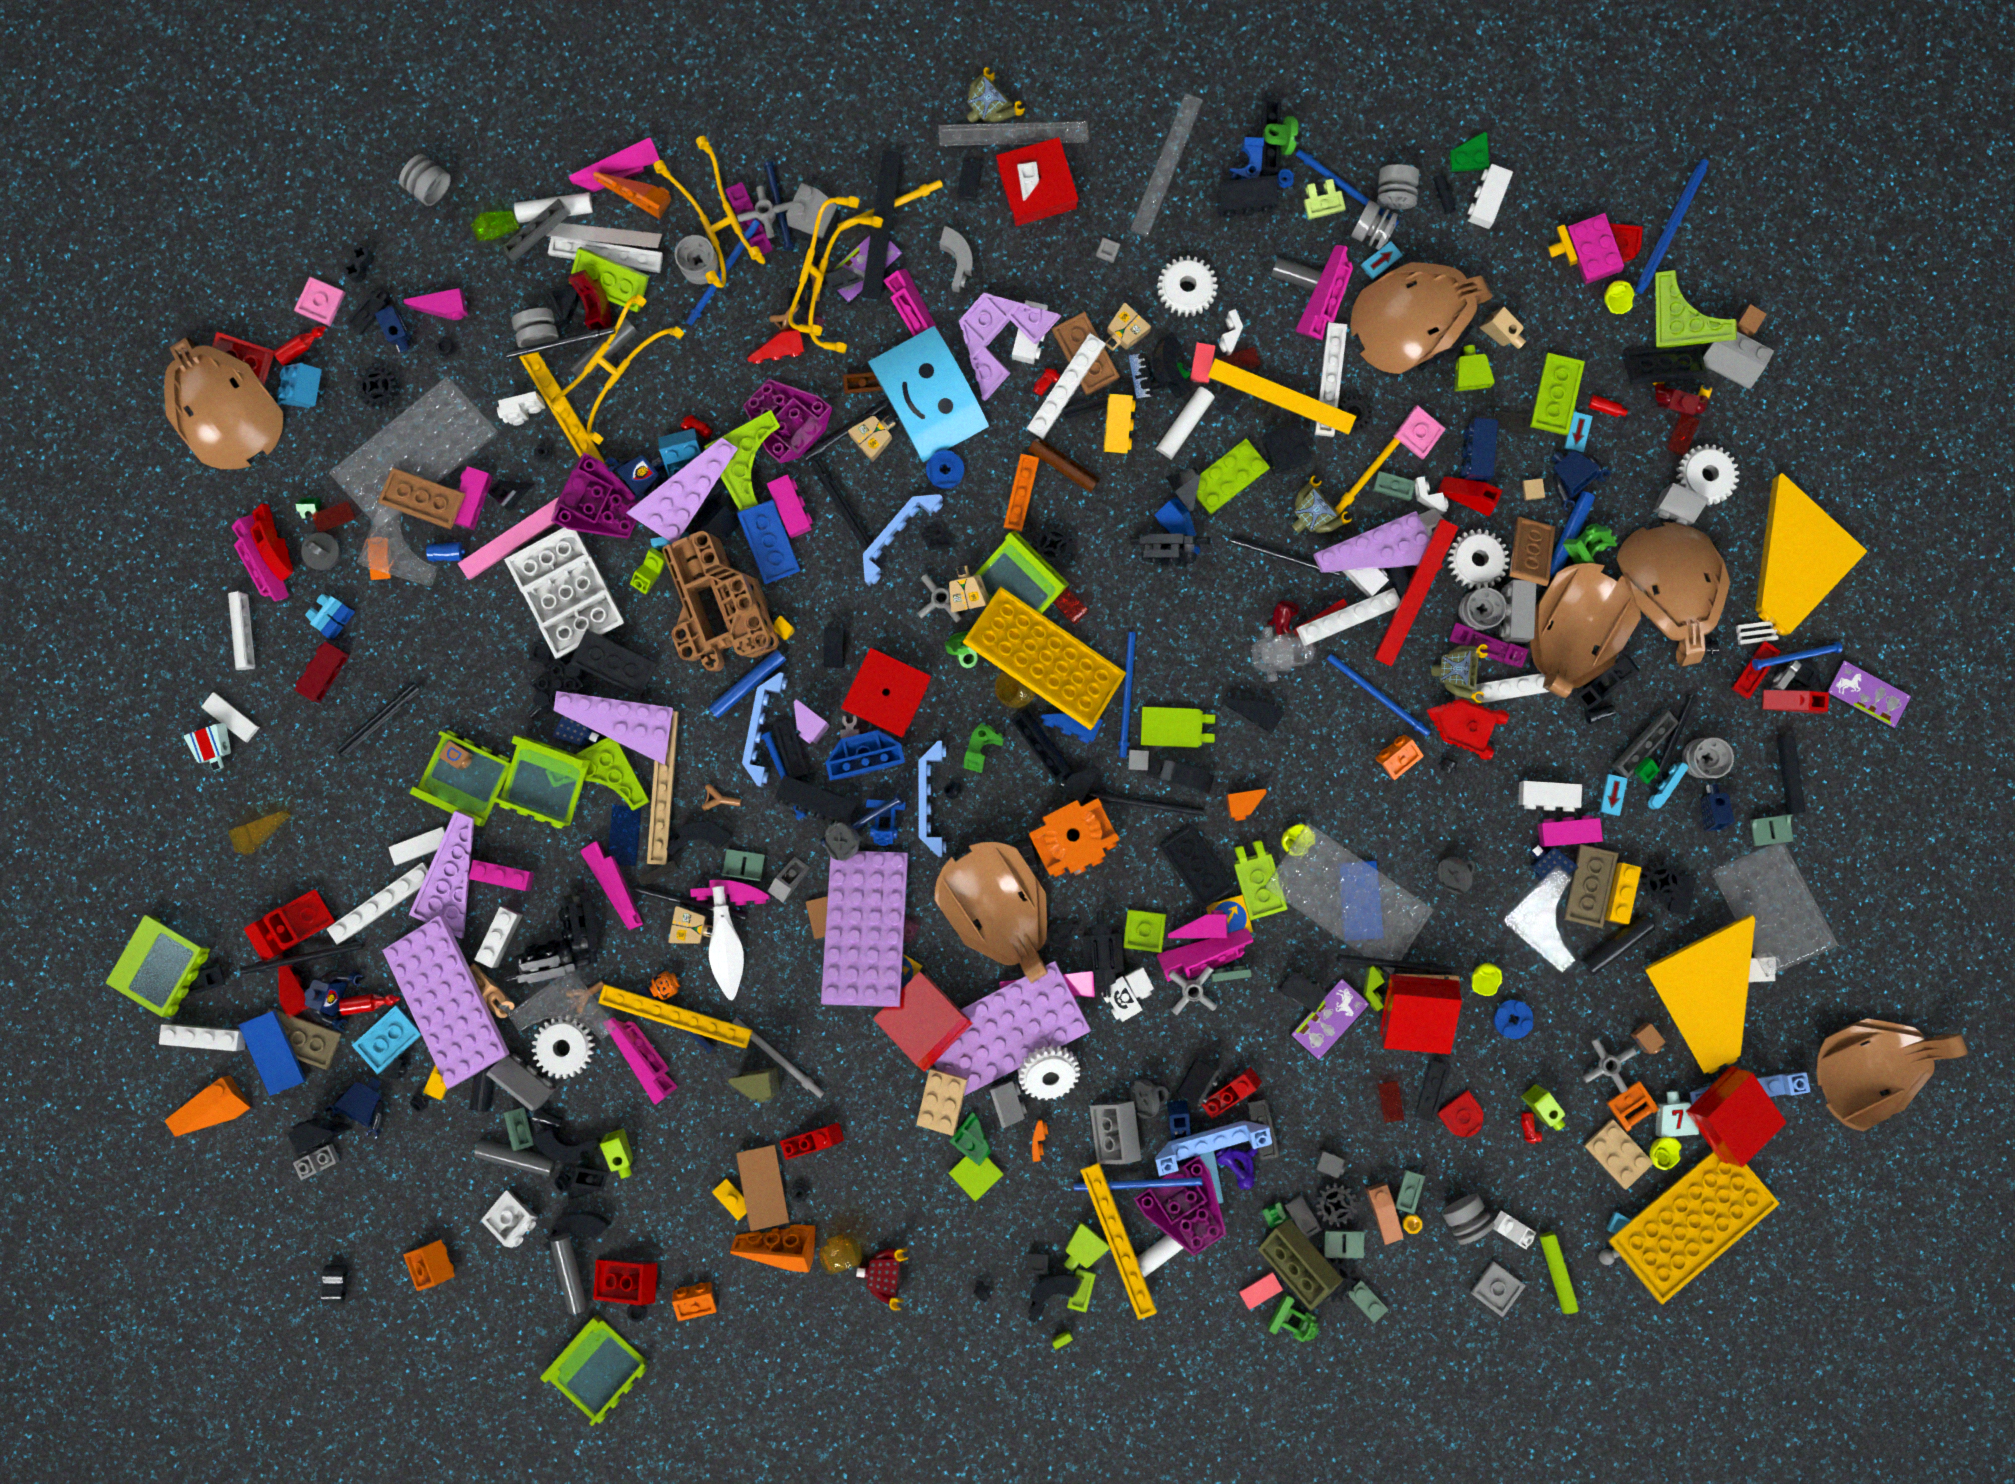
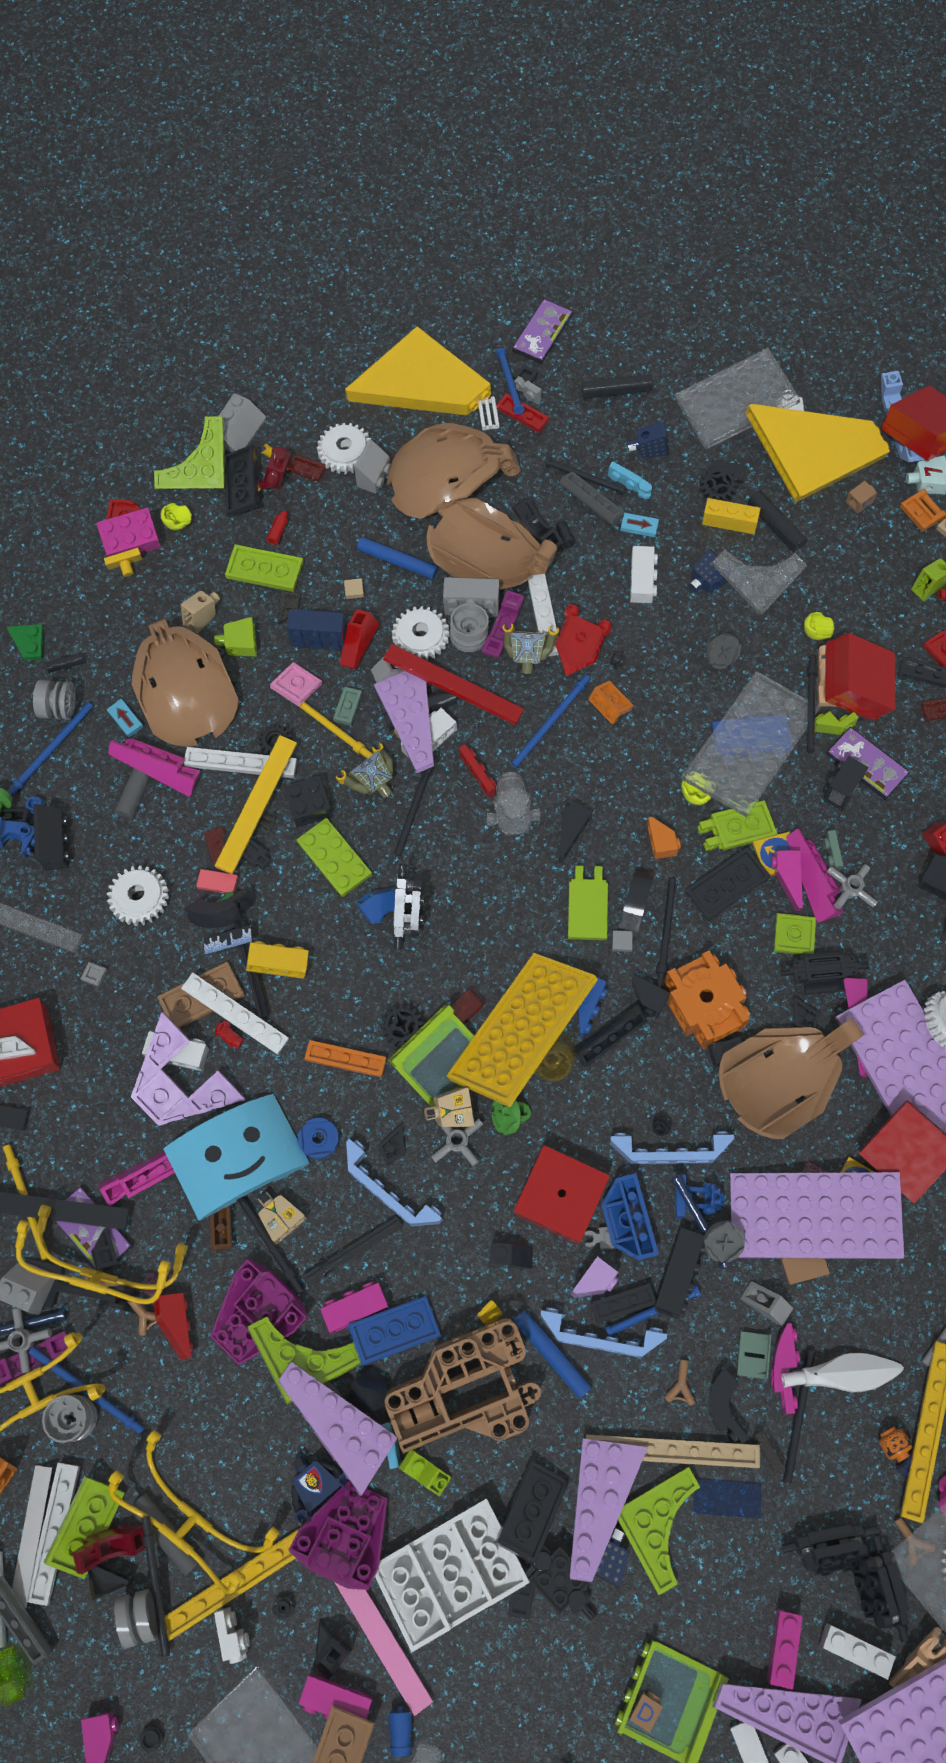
camera: 90 degrees left, 15 degrees down
(543, 782) = (673, 1597): clear light blue panel -> none
(613, 883) = (783, 1510): dark pink wedge -> none
(679, 450) = (290, 1436): dark azure slope -> none
(689, 927) = (827, 1416): tan torso -> none
(701, 427) = (261, 1415): red arm -> none
(958, 247) = (82, 1124): light grey arch -> none
(981, 736) = (625, 1102): bright green tile -> none
(1064, 464) = (317, 1015): reddish brown brick -> none
(1122, 1000) = (872, 950): white brick -> none
(1123, 743) = (557, 952): blue bar -> none
(1126, 328) = (177, 954): tan torso -> none
(1139, 983) = (850, 935): white brick -> none
(1185, 422) = (277, 898): white brick -> none
(1186, 486) = (343, 893): black slope -> none
(1230, 338) = (198, 855): white slope -> none
(1282, 616) = (475, 804): dark red piece -> none
(1323, 205) = (65, 769): yellowish green plate -> none
(1348, 617) = (477, 743): white plate -> none
(1374, 225) = (90, 720): light grey wheel -> none
(1431, 501) = (357, 681): white slope -> none
(1489, 196) = (70, 623): white brick -> none
(1518, 1009) = (856, 597): blue plate -> none
(1532, 551) = (414, 584): medium nougat tile -> none
(1570, 831) = (676, 558): dark pink brick -> none
(1575, 473) = (342, 553): dark blue torso -> none
(1578, 432) = (306, 551): medium azure tile -> none
(1591, 886) = (738, 542): dark tan tile -> none
(1599, 540) = (403, 538): bright green tile -> none
(1604, 1058) = (888, 533): light grey bar -> none
(1646, 770) = (617, 496): green tile -> none
(1671, 226) = (112, 476): blue piece -> none
(1717, 754) = (604, 446): light grey wheel -> none
(1750, 320) = (201, 411): medium nougat brick -> none
(1781, 830) = (663, 395): sand green piece -> none
(1795, 701) = (550, 381): red slope -> none
(1891, 1060) = (860, 319): medium nougat windscreen -> none

